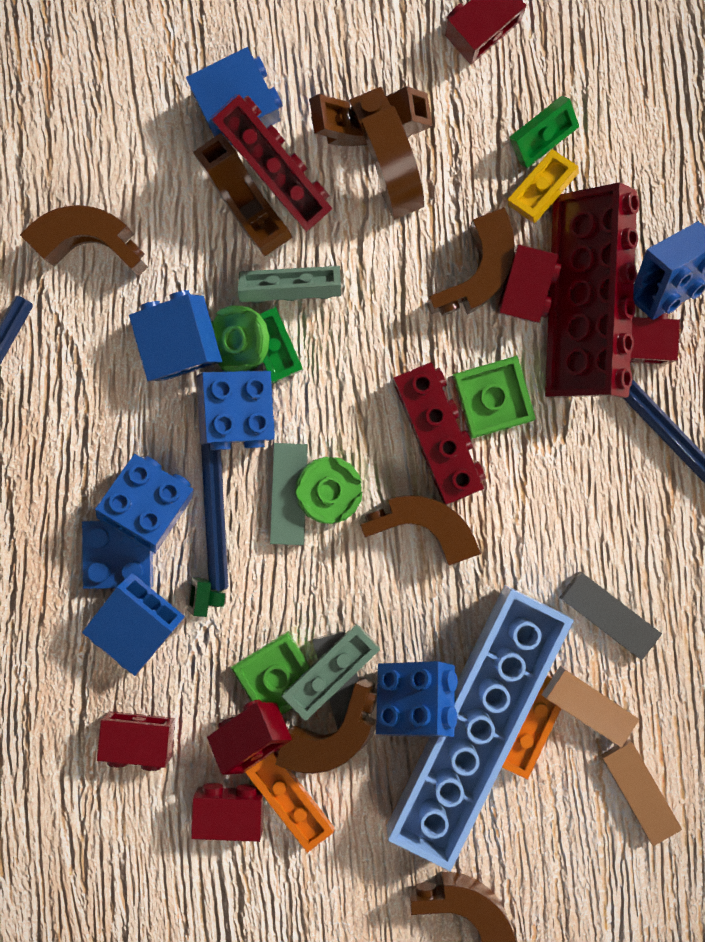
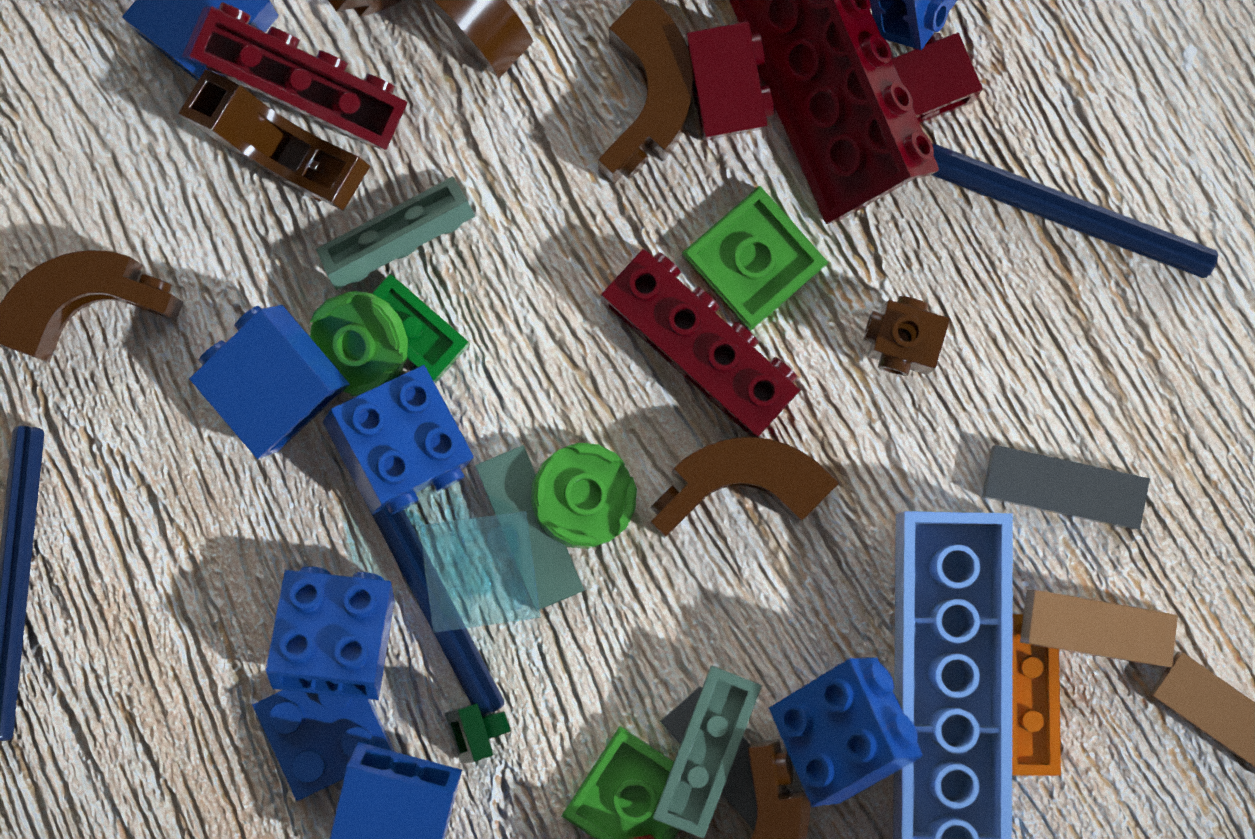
camera: 25 degrees left, 5 degrees down
(247, 507) = (479, 571): none -> clear light blue plate
(572, 487) = (923, 329): none -> reddish brown brick

